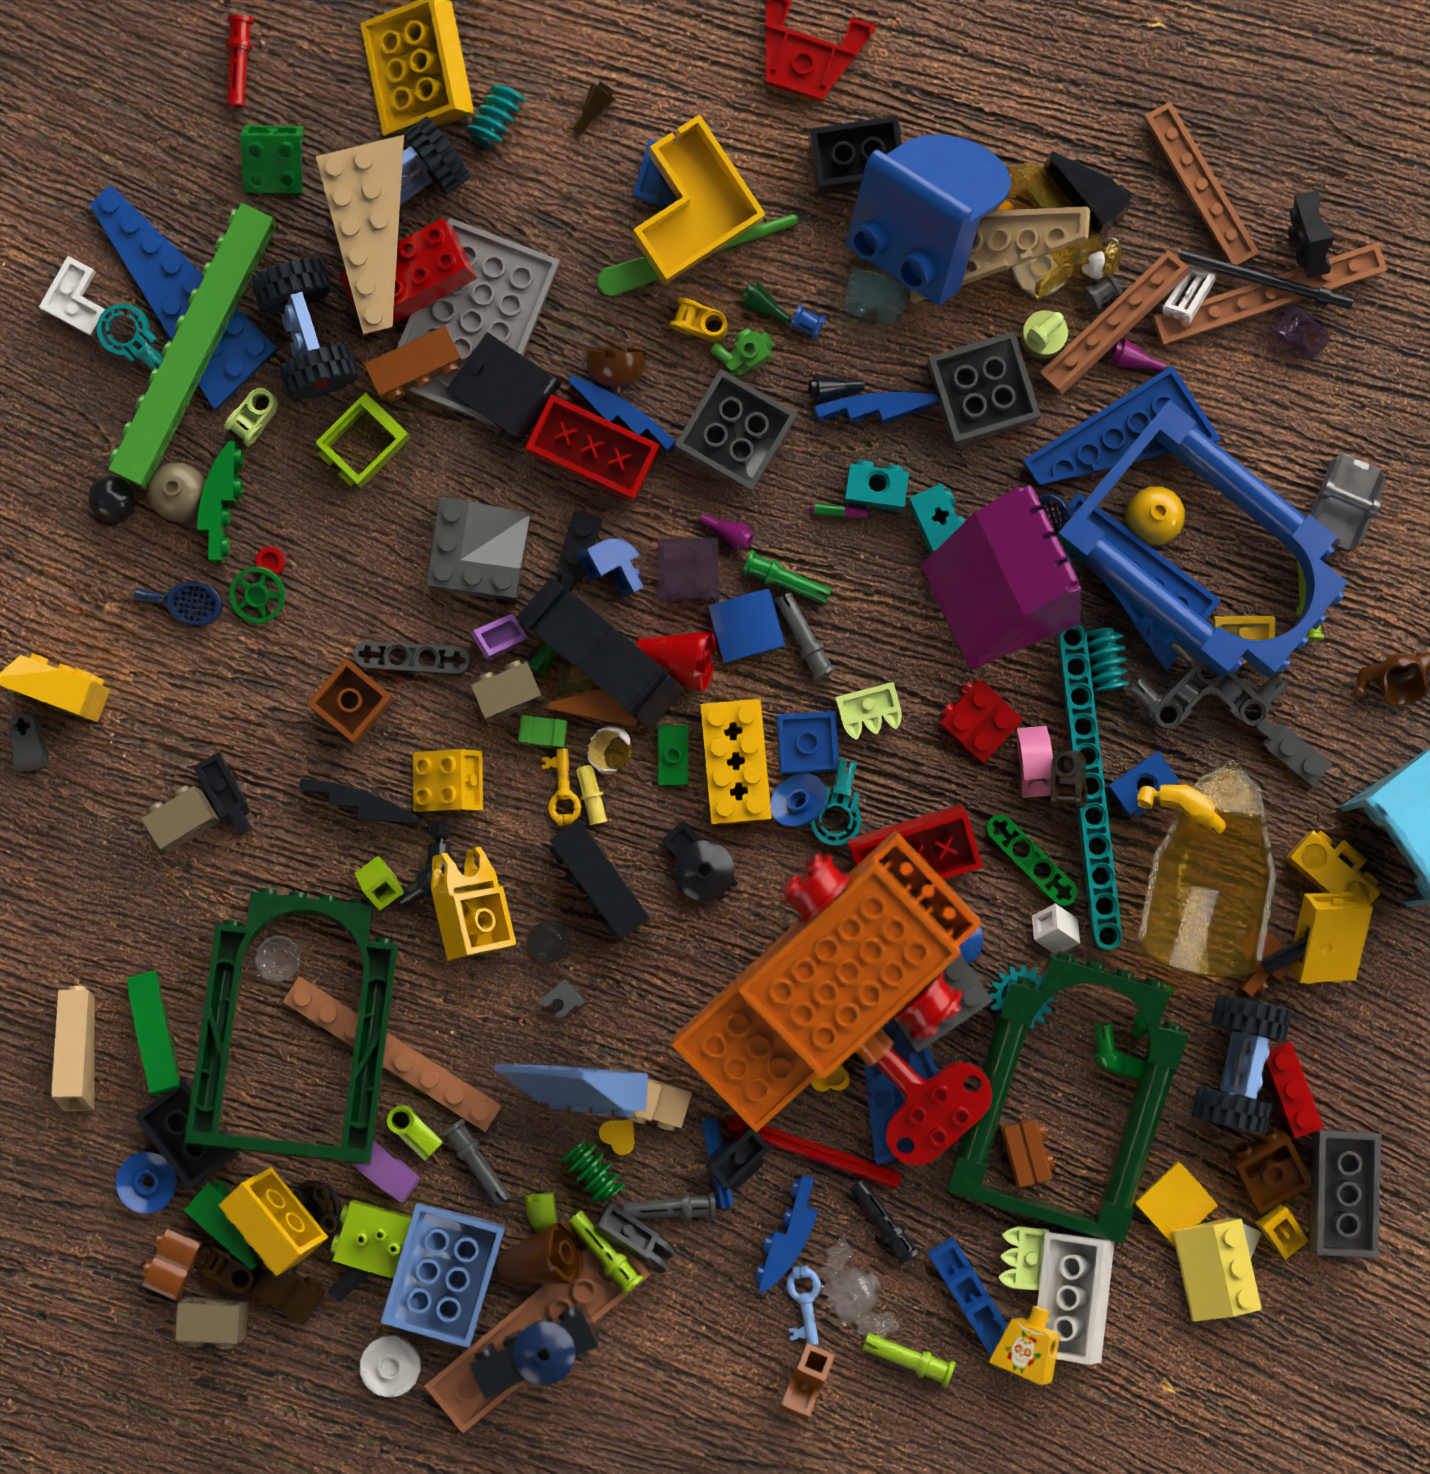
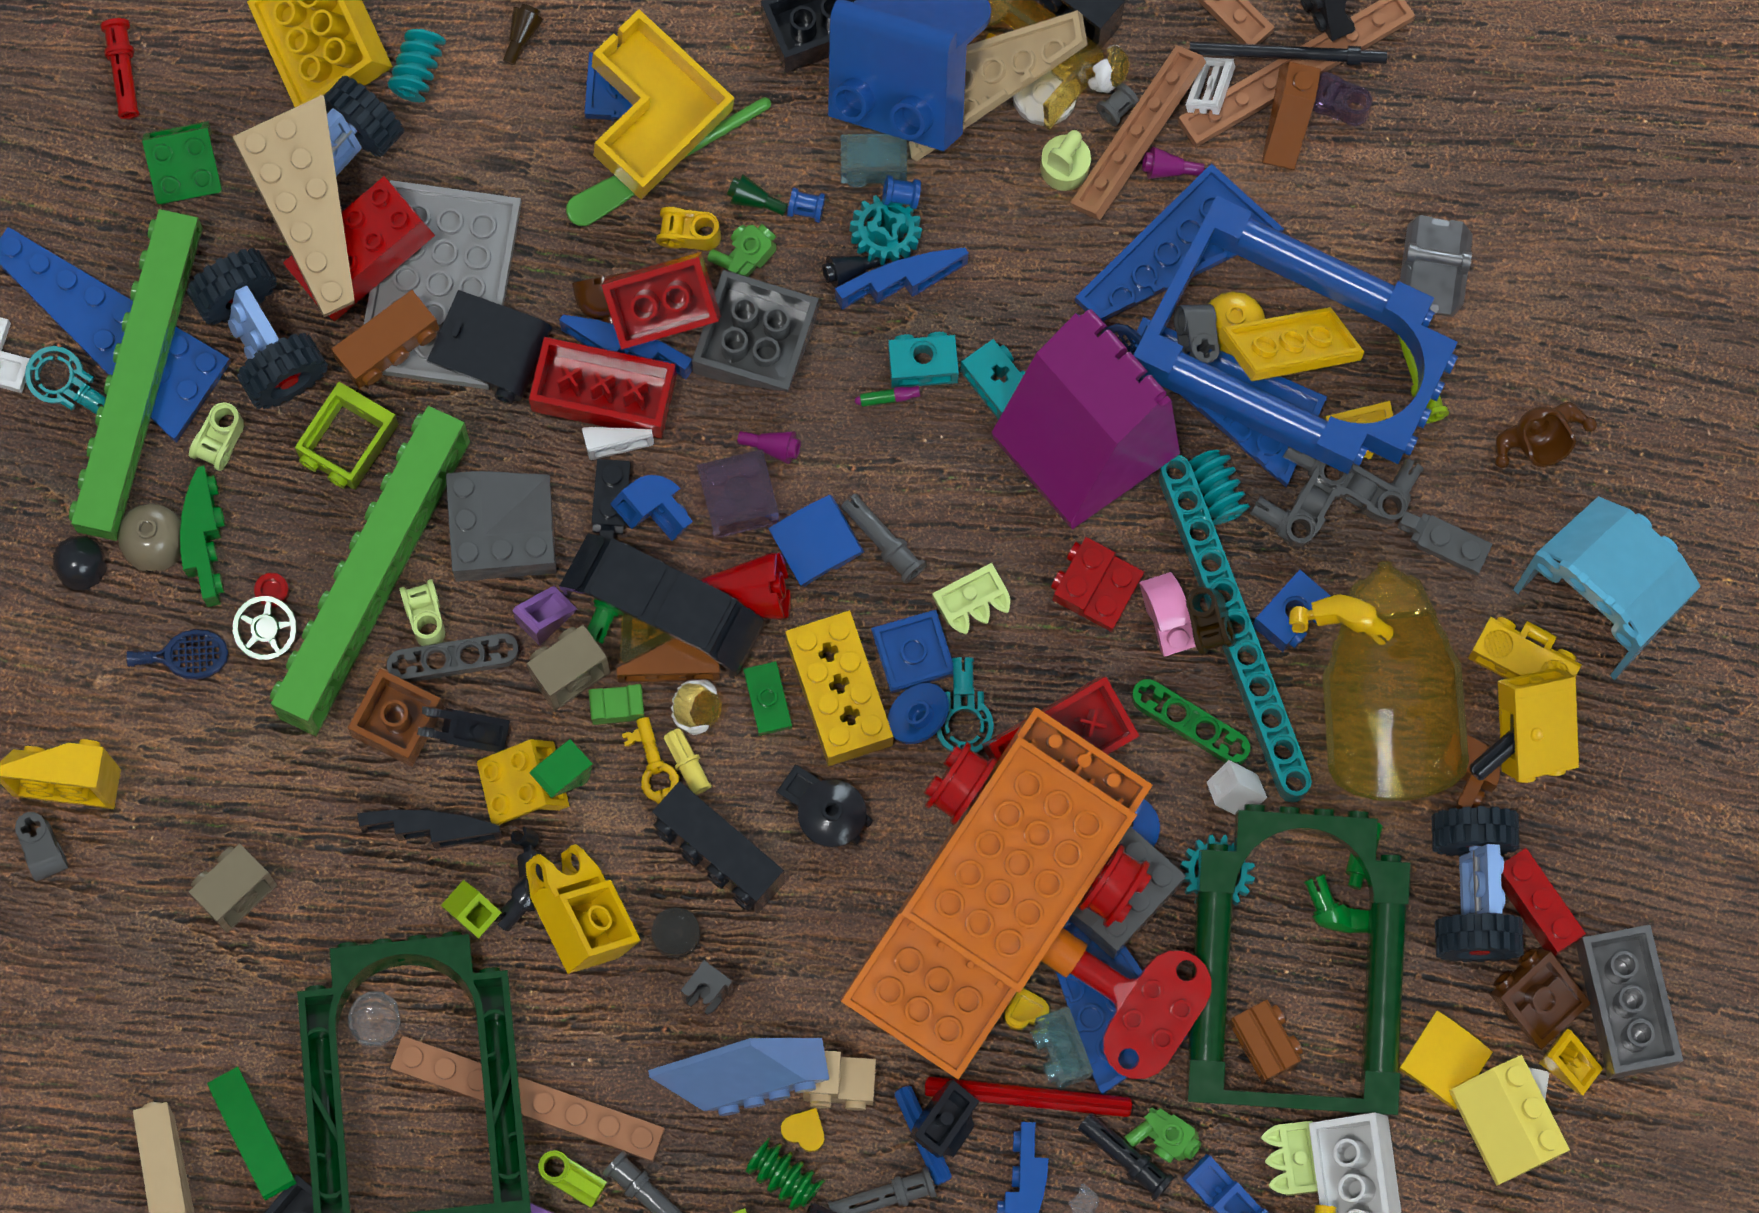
camera: 15 degrees left, 10 degrees down
(224, 792) = (274, 850): black hinge -> none
(357, 567) = (370, 571): none -> bright green brick
(395, 607) = (423, 608): none -> yellowish green piece
(409, 727) = (467, 729): none -> black hinge
(481, 783) = (563, 770): none -> green slope
(586, 497) = (611, 441): none -> white slope
(658, 387) = (661, 300): none -> red brick
(772, 573) = (830, 477): green pin -> none
(853, 1120) = (1063, 1048): none -> clear light blue brick
(859, 362) = (876, 239): none -> teal gear
(893, 331) = (901, 192): none -> blue bush
(927, 1213) = (1172, 1136): none -> bright green piece
(983, 389) = (1014, 232): dark grey slope -> none
(1121, 519) = (1197, 331): none -> dark grey piece
(1201, 548) = (1291, 344): none -> yellow tile
(1253, 337) = (1290, 114): none -> dark orange slope

